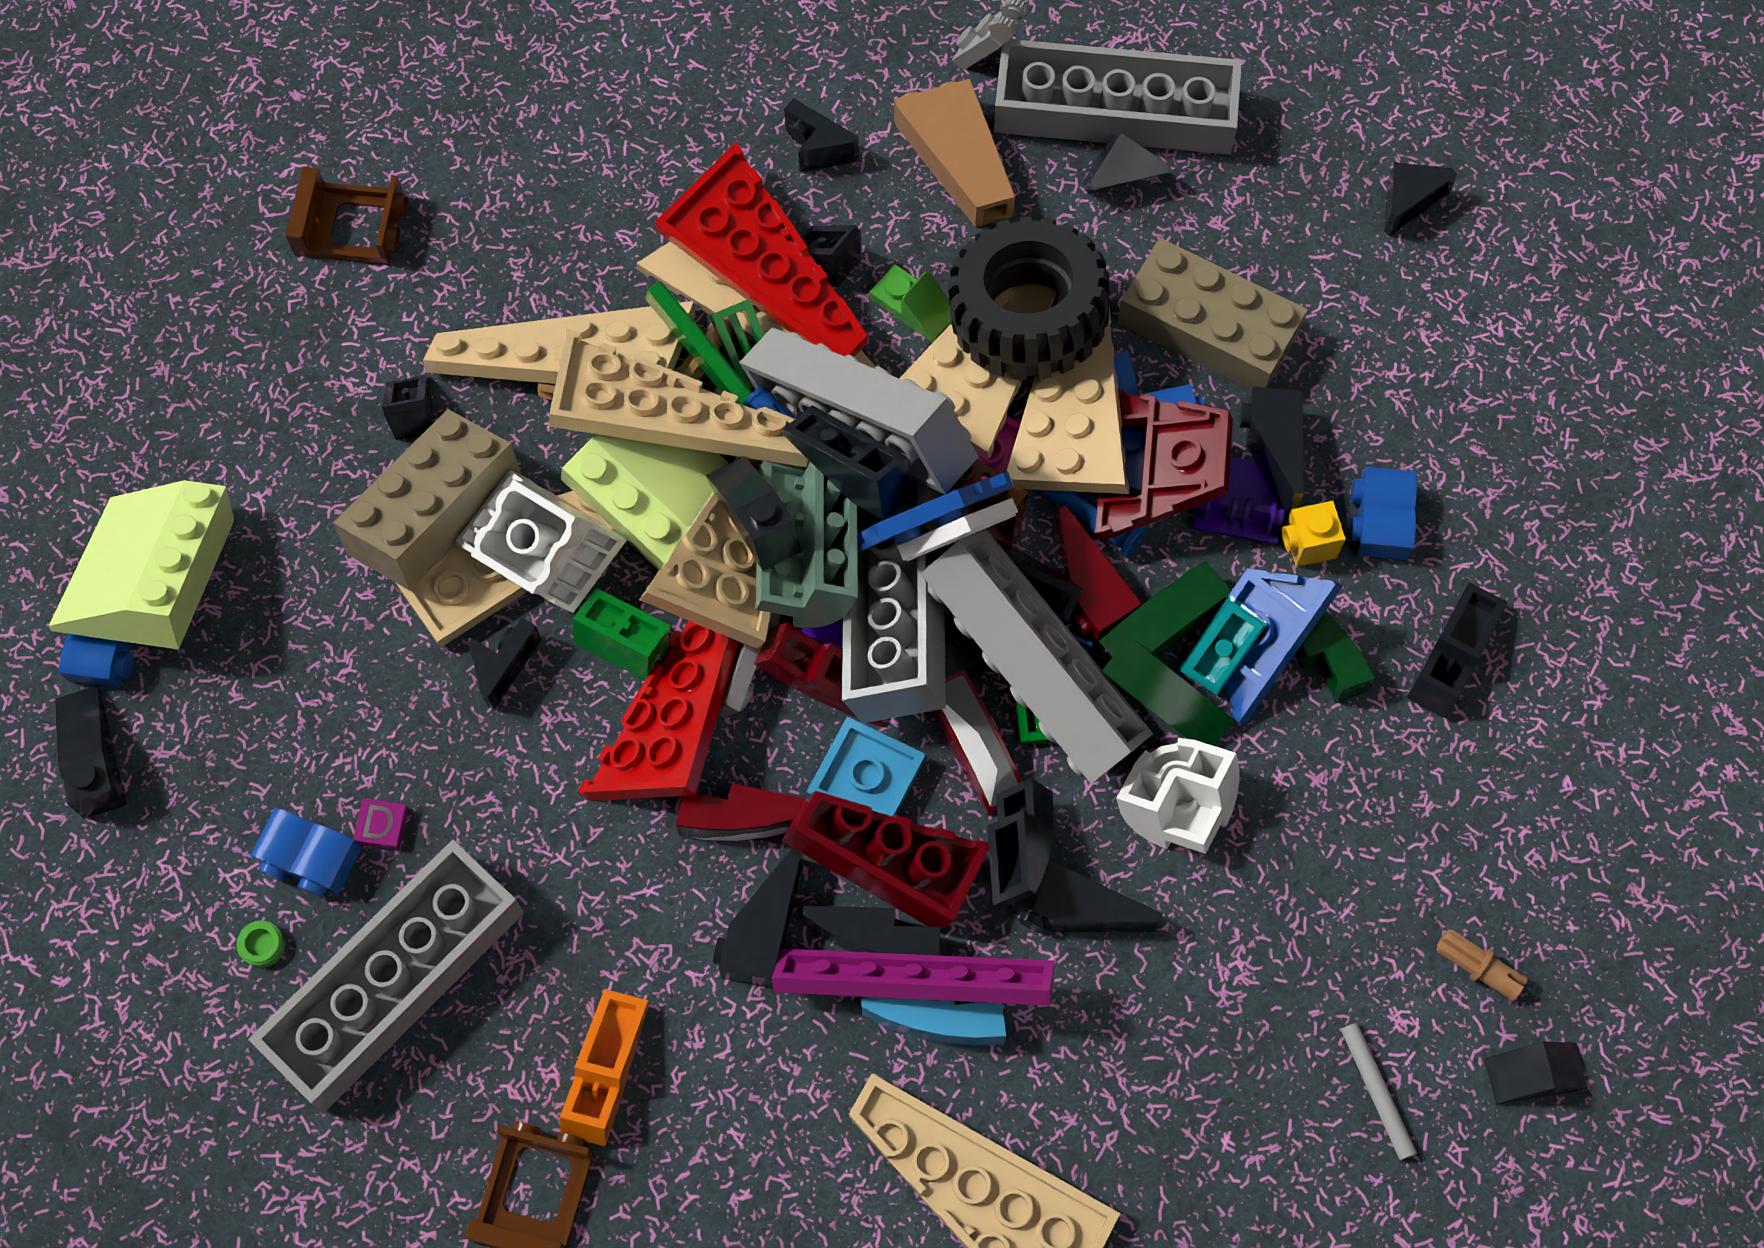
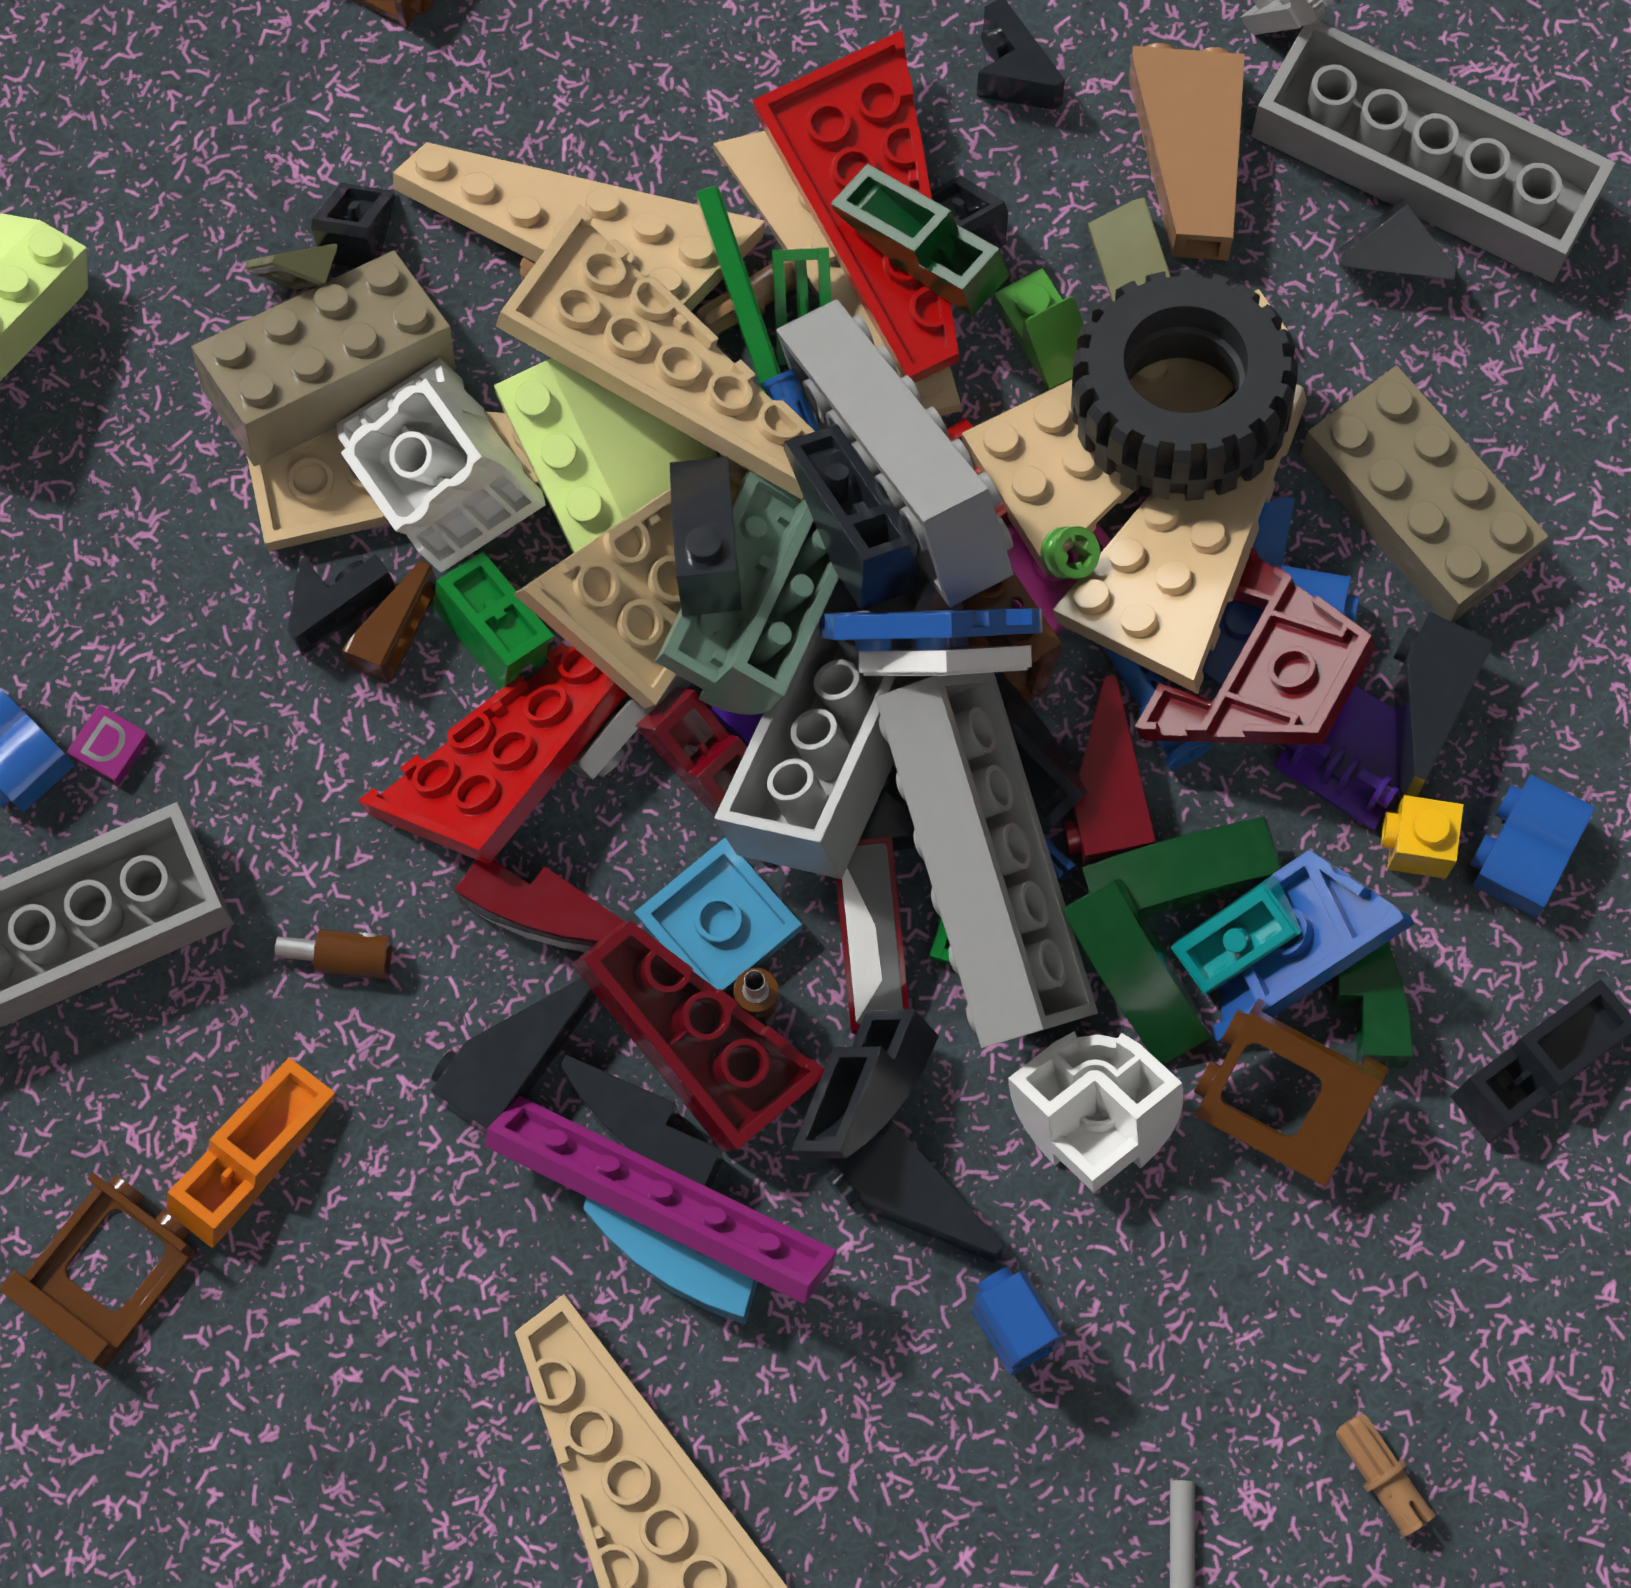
camera: 25 degrees right, 5 degrees up
(382, 446) = (295, 268): none -> olive slope
(550, 671) = (389, 631): none -> reddish brown slope
(610, 902) = (342, 953): none -> reddish brown piece
(811, 268) = (922, 238): none -> dark green slope
(918, 808) = (758, 994): none -> reddish brown piece
(944, 230) = (1127, 245): none -> olive slope
(1007, 428) = (1084, 545): none -> bright green bush
(1193, 960) = (1015, 1319): none -> blue brick
(1343, 739) = (1331, 1120): none -> reddish brown window

